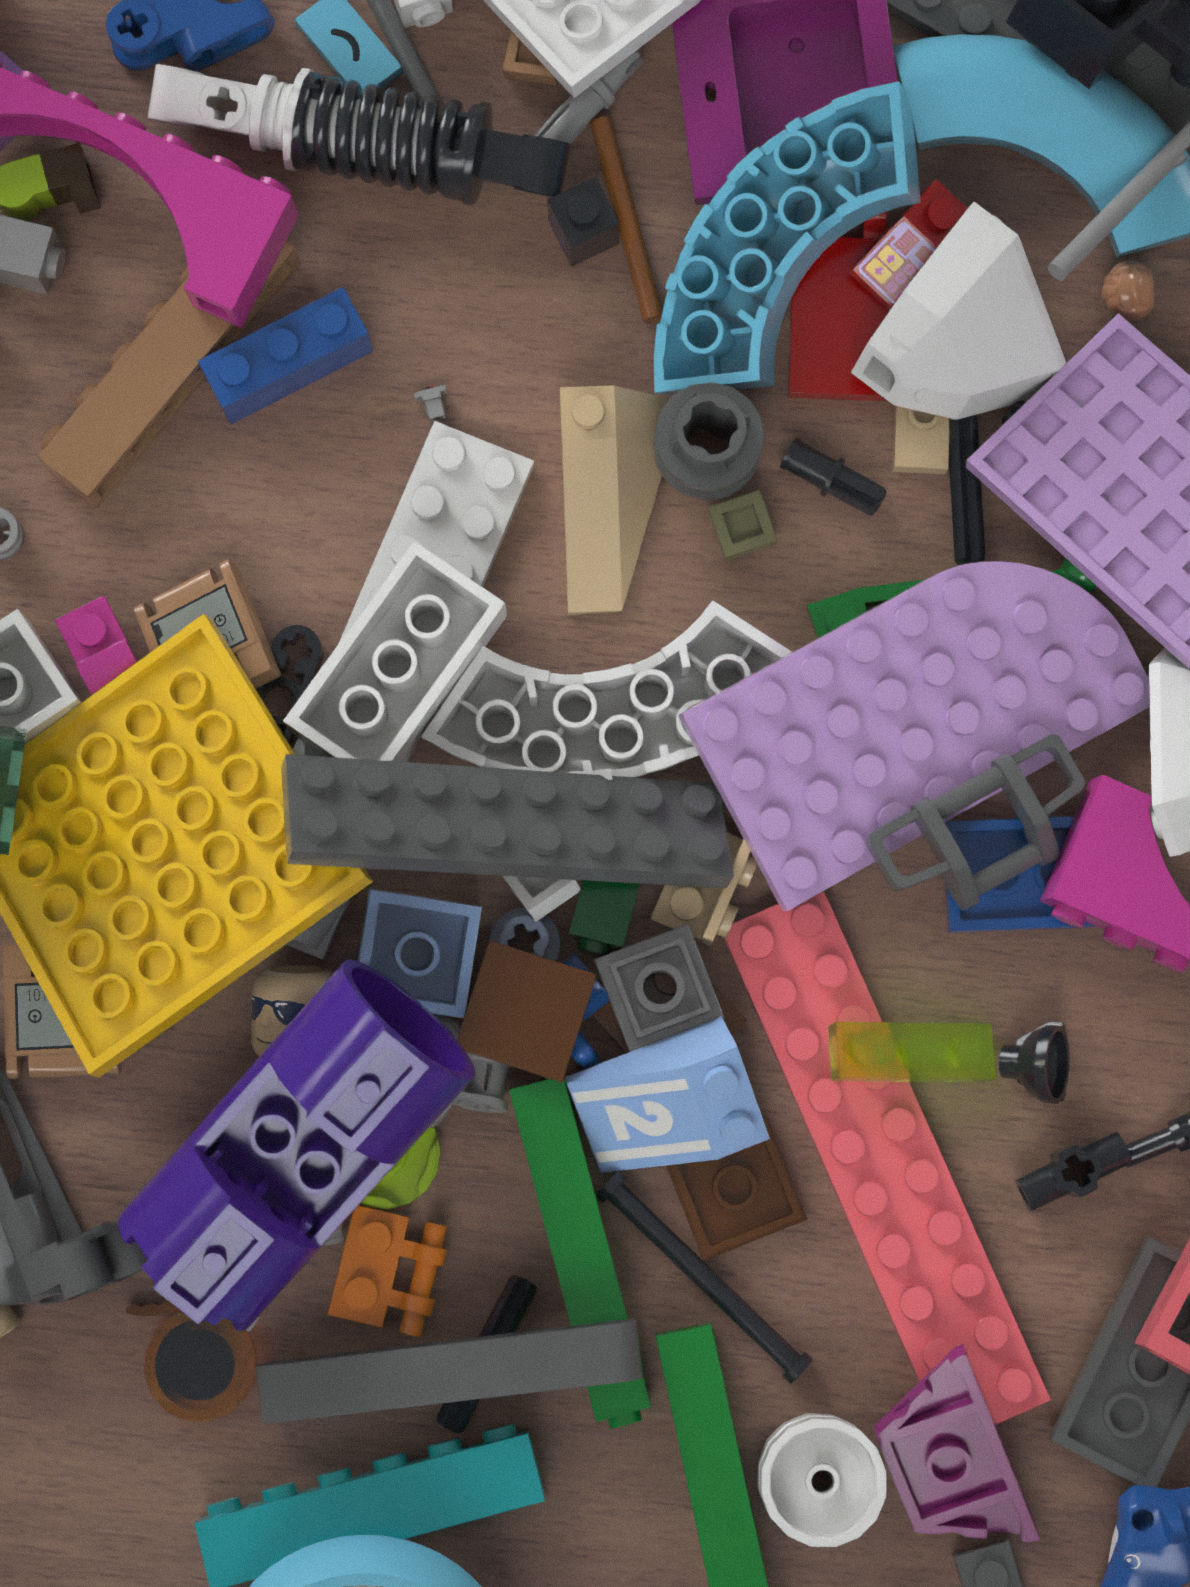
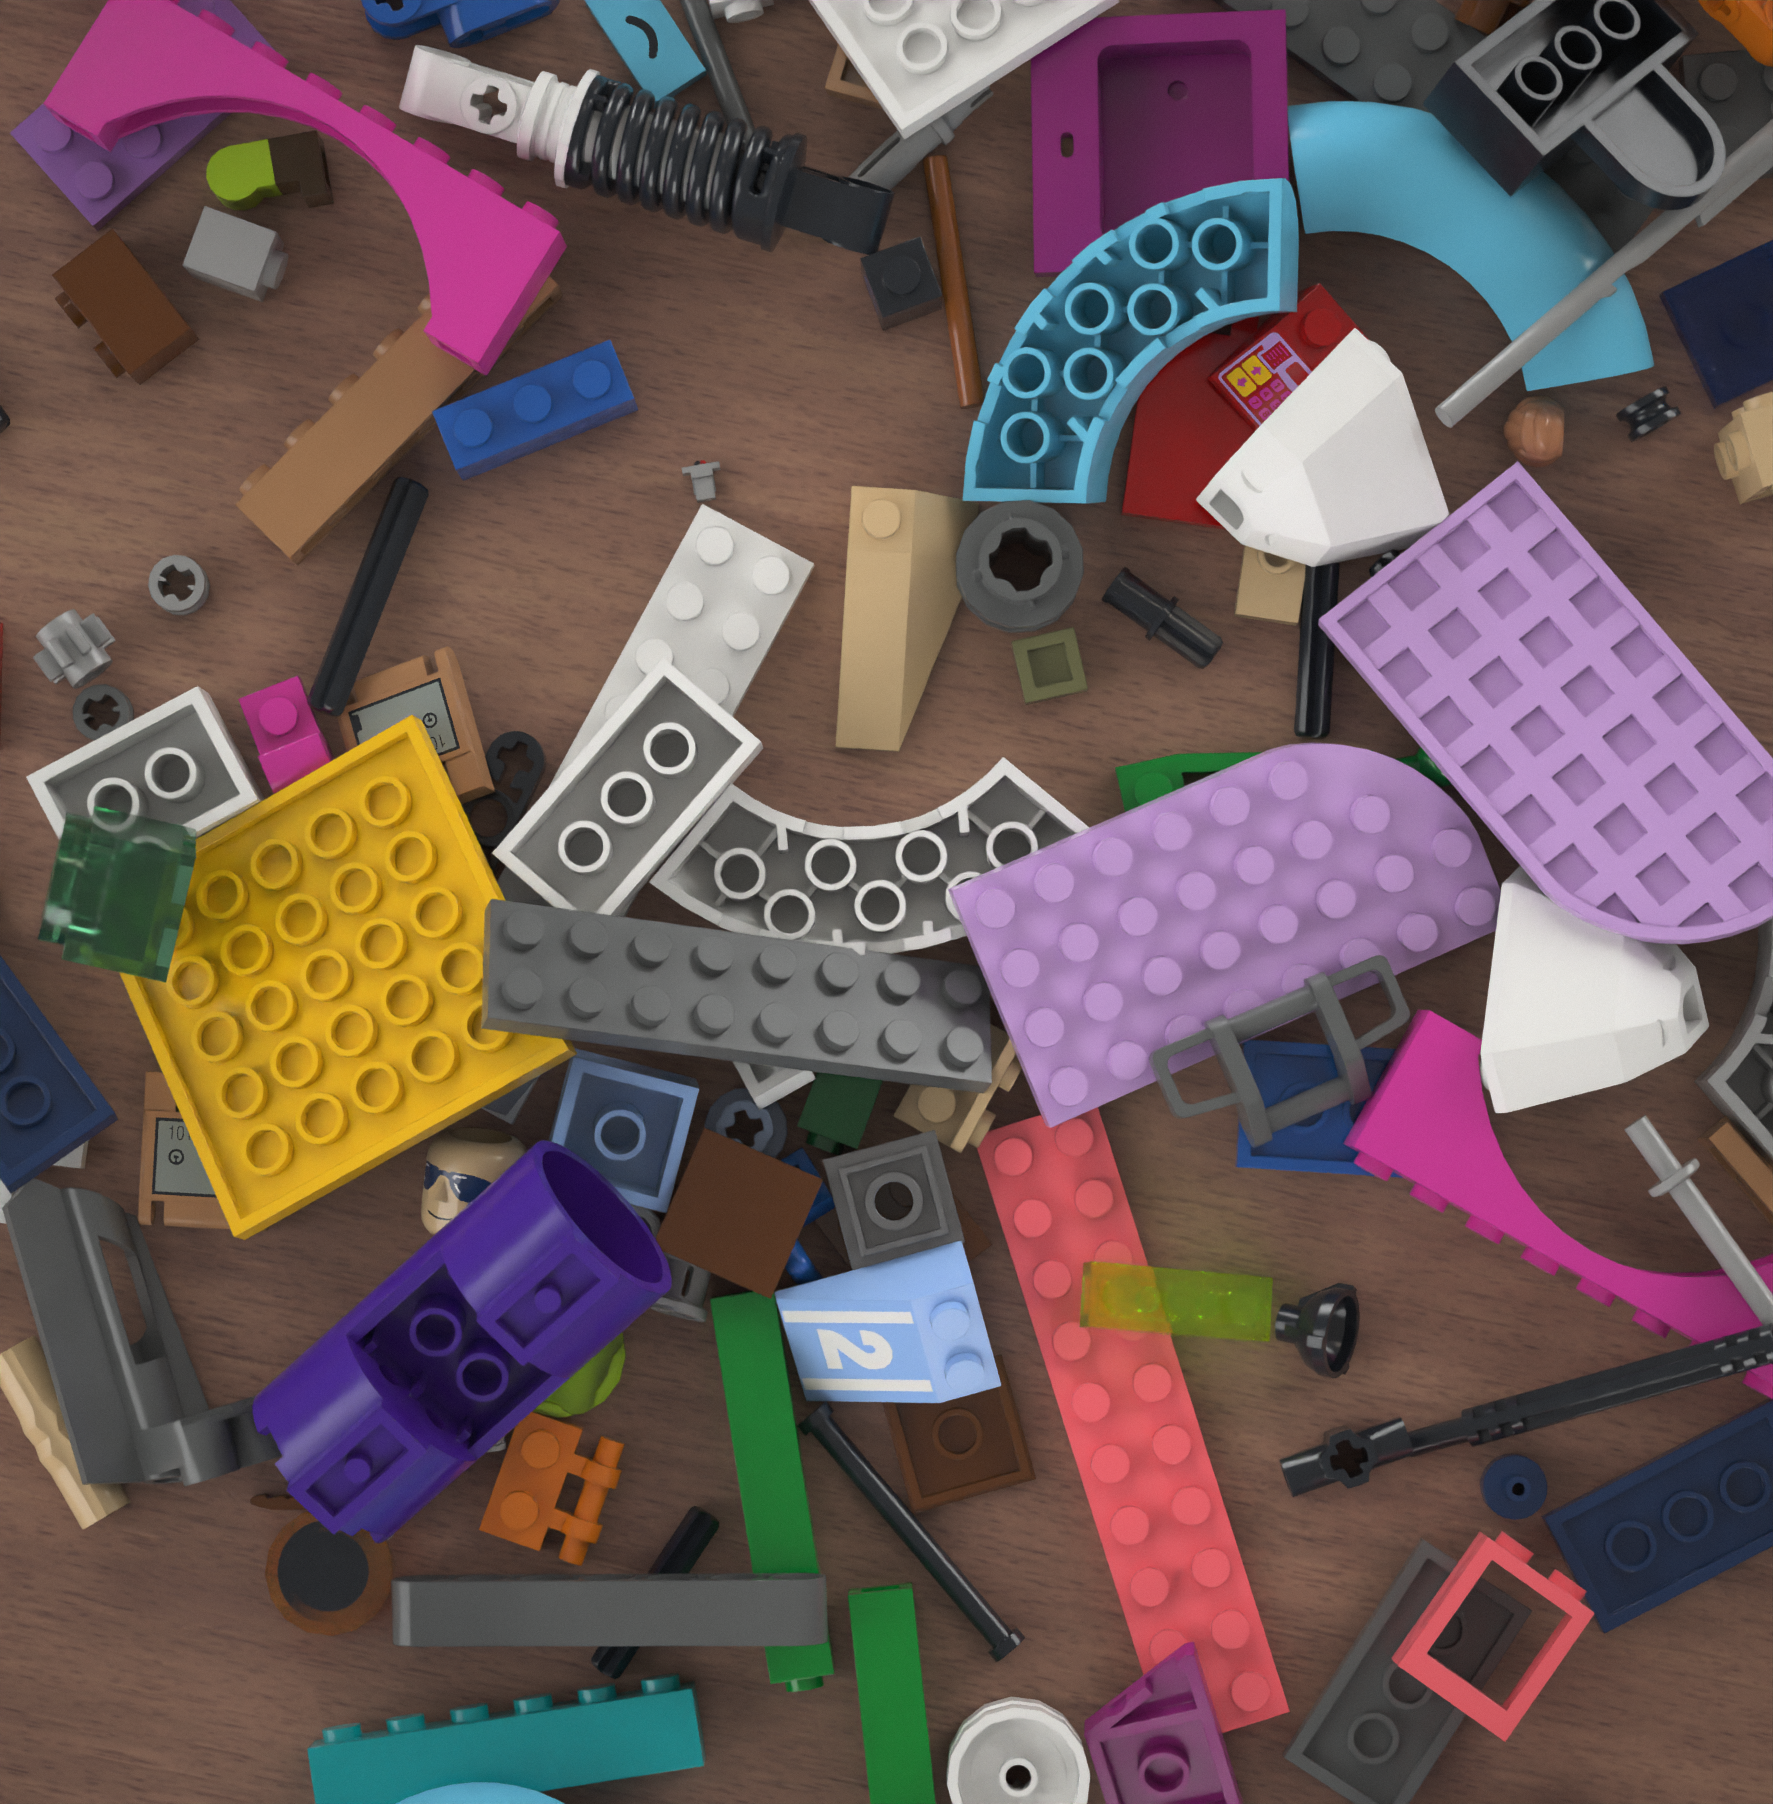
camera: 10 degrees right, 5 degrees up
(157, 525) = (367, 597): none -> black axle

